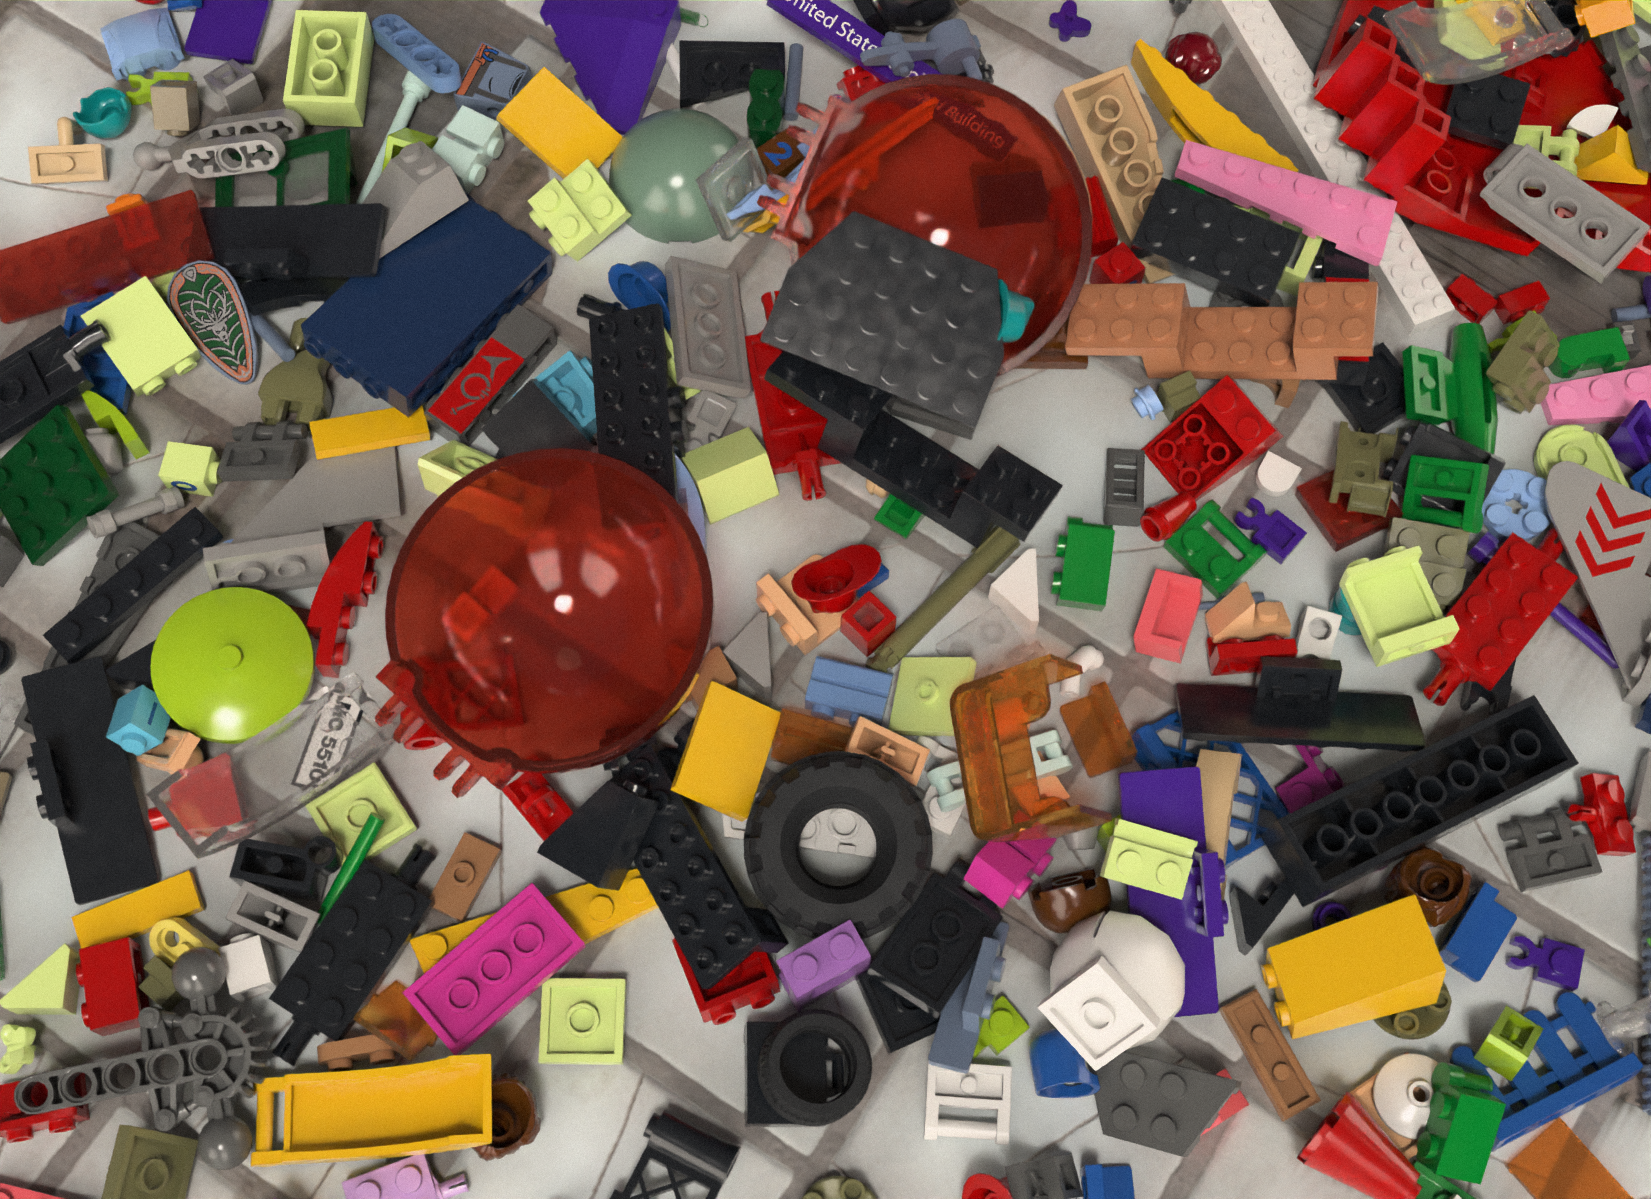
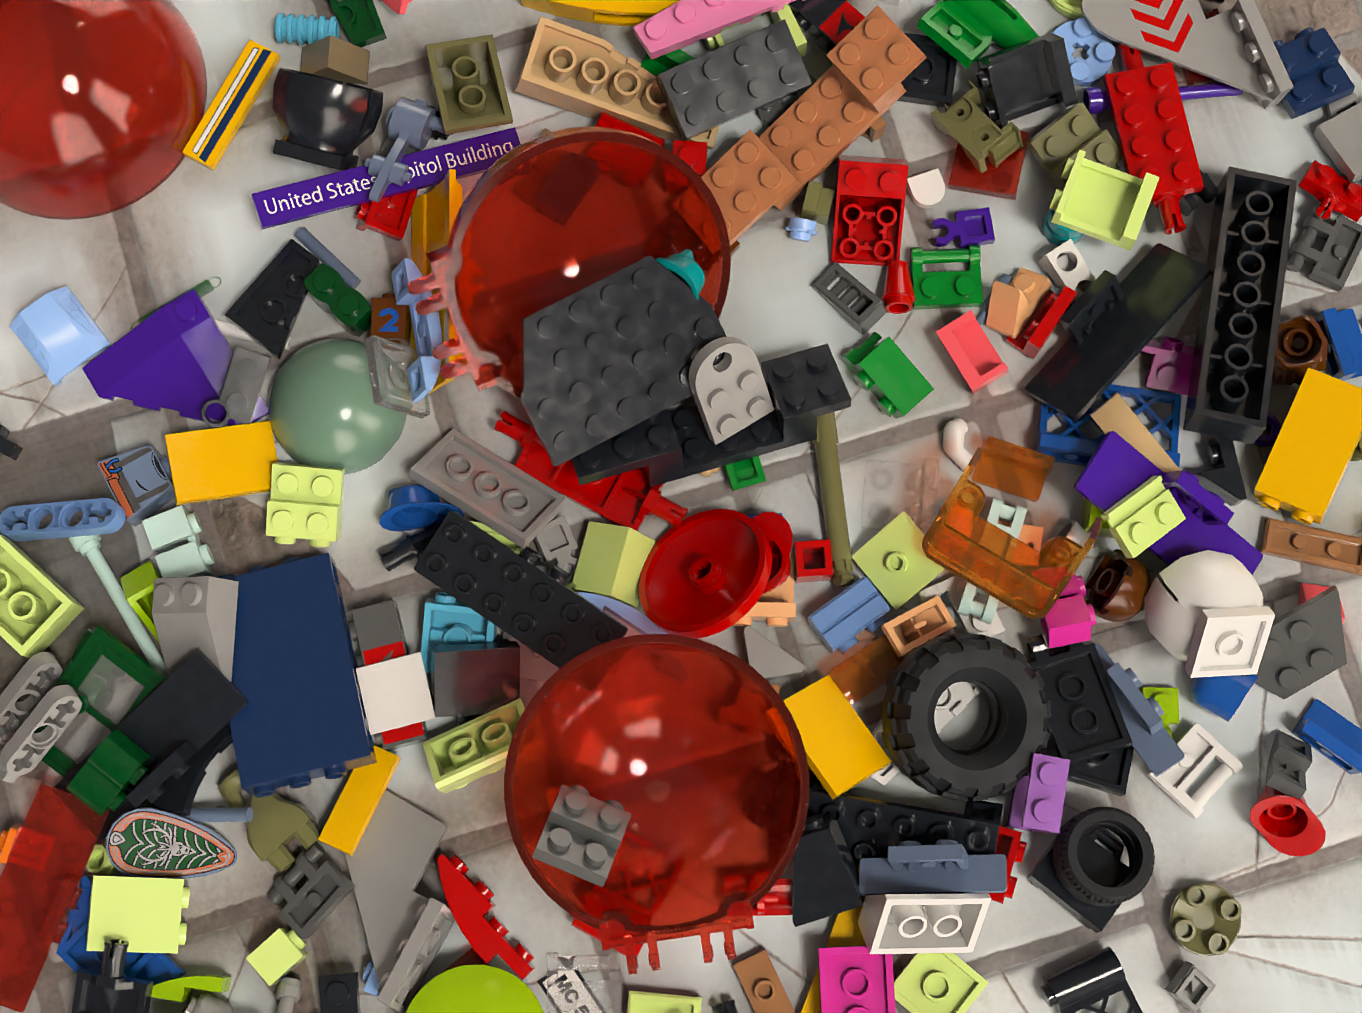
camera: 50 degrees left, 10 degrees up
(238, 224) = (109, 772): none -> dark green brick
(461, 585) = (582, 834): none -> dark grey plate
(476, 385) = (395, 693): none -> white sticker
(626, 952) = (922, 922): none -> white slope
(629, 91) = (241, 387): none -> hinge
(676, 919) = (932, 870): none -> sand blue bracket
(779, 541) = (705, 573): none -> red dish
(949, 431) = (730, 392): none -> light grey plate
(1018, 592) = (870, 436): white slope -> none
(1025, 57) = (468, 84): none -> olive slope
(1069, 23) = (451, 20): dark purple piece -> none
(1446, 480) = (1038, 85): green plate -> none

